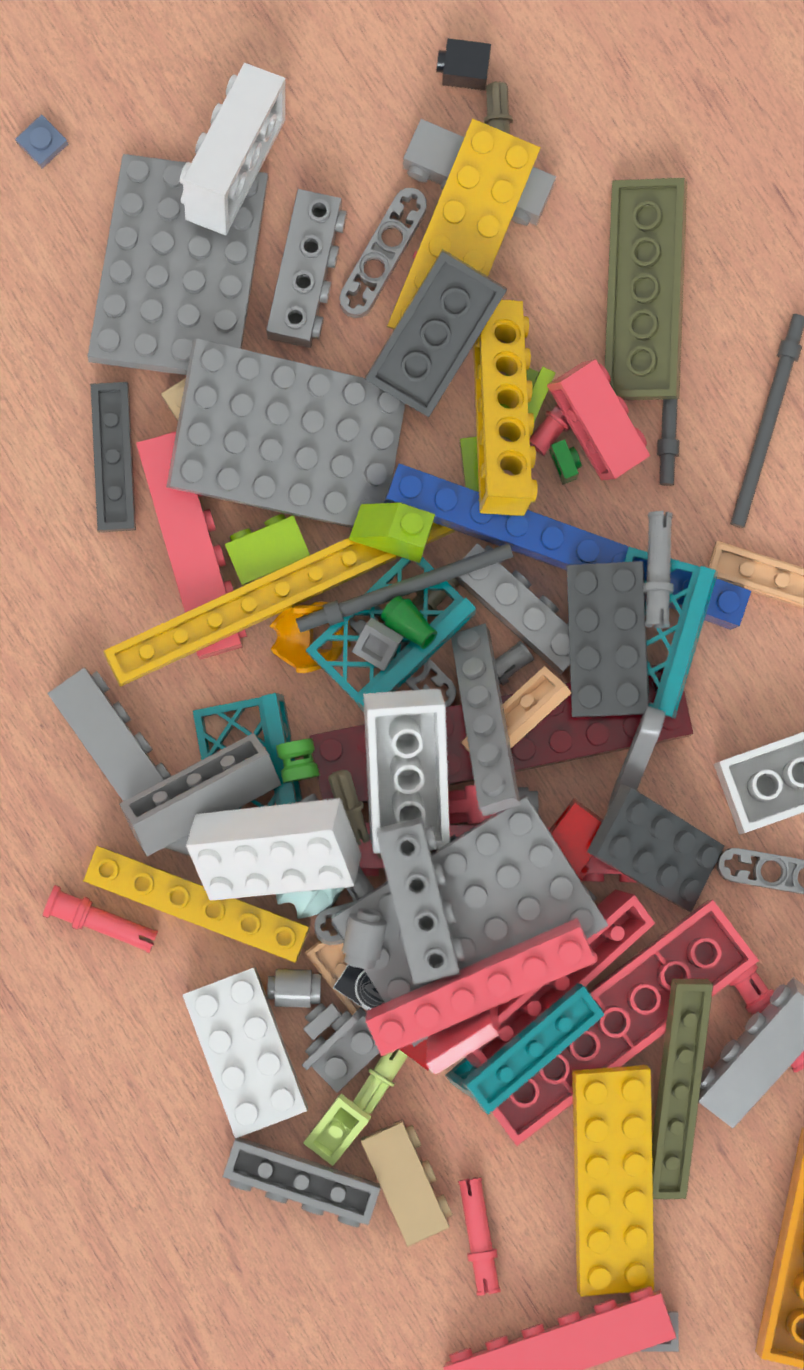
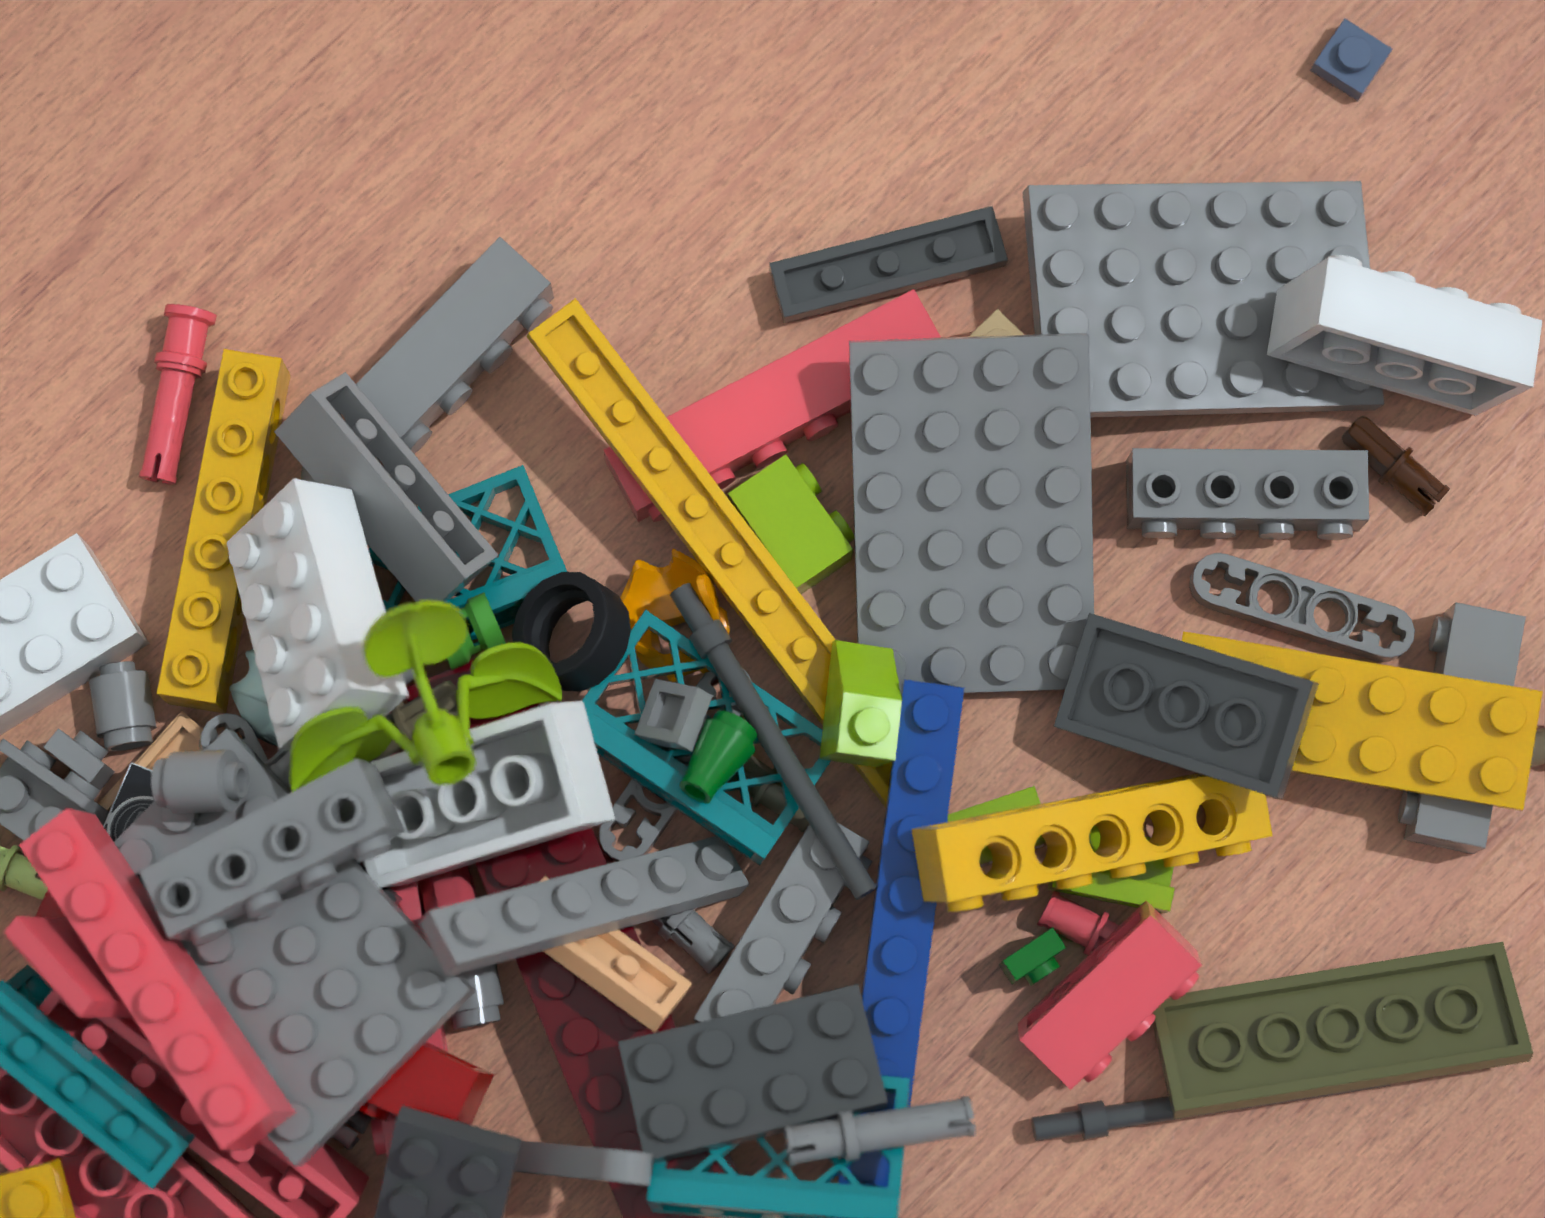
camera: 80 degrees right, 5 degrees down
(307, 175) = (1395, 464): none -> reddish brown axle
(328, 679) = (607, 637): none -> black tyre
(374, 781) = (408, 638): none -> lime plant

